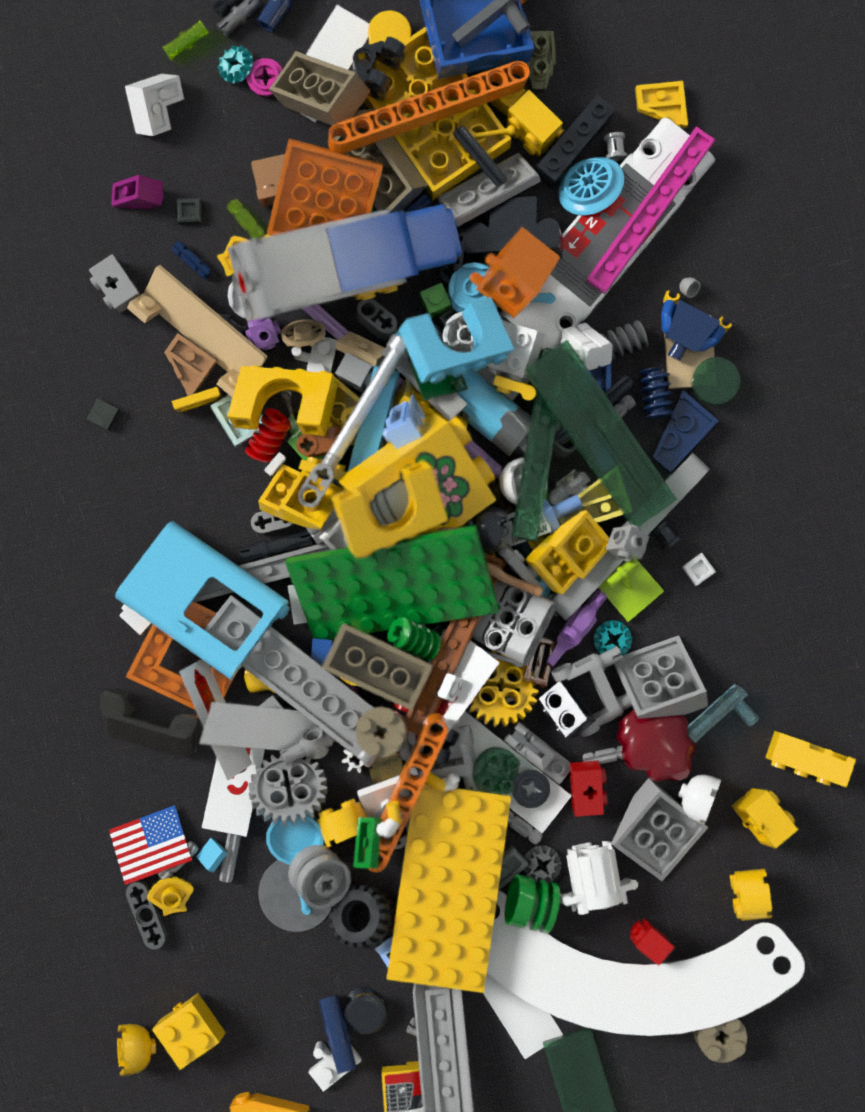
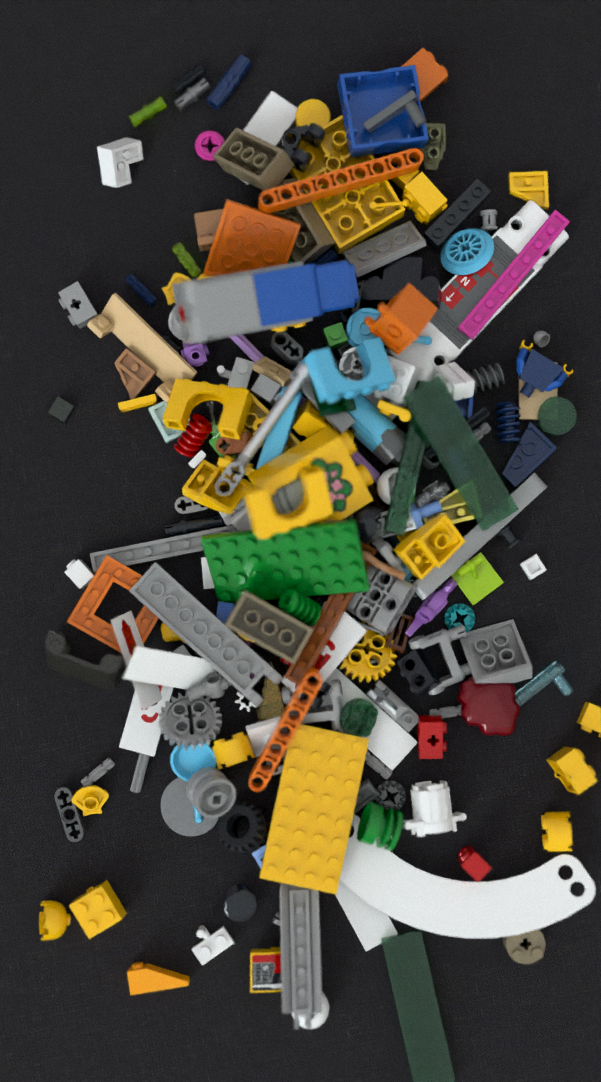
camera: 10 degrees right, 0 degrees up
(137, 193) = (100, 233): magenta slope -> none
(150, 845) = (76, 758): sticker -> none
(172, 577) = (110, 543): medium azure piece -> none
(189, 210) = (141, 249): pearl dark grey tile -> none
(212, 855) = (125, 769): medium azure tile -> none
(237, 72) = (187, 141): teal gear -> none
(303, 333) = (227, 355): tan wheel -> none
(337, 1034) = (216, 920): dark blue axle -> none
(367, 843) = (251, 767): green tile -> none
(369, 725) = (278, 686): dark tan brick -> none
(393, 822) = (269, 756): arm -> none
(404, 423) = (303, 434): light blue window -> none
(443, 784) = (317, 725): arm -> none
(450, 687) = (326, 648): white tile -> none
(480, 156) = (378, 221): black axle -> none
(536, 798) = (388, 742): black gear -> none
(627, 543) = (476, 541): light grey brick -> none
(656, 830) = (484, 774): light grey slope -> none
(699, 796) = (520, 750): white cylinder -> none

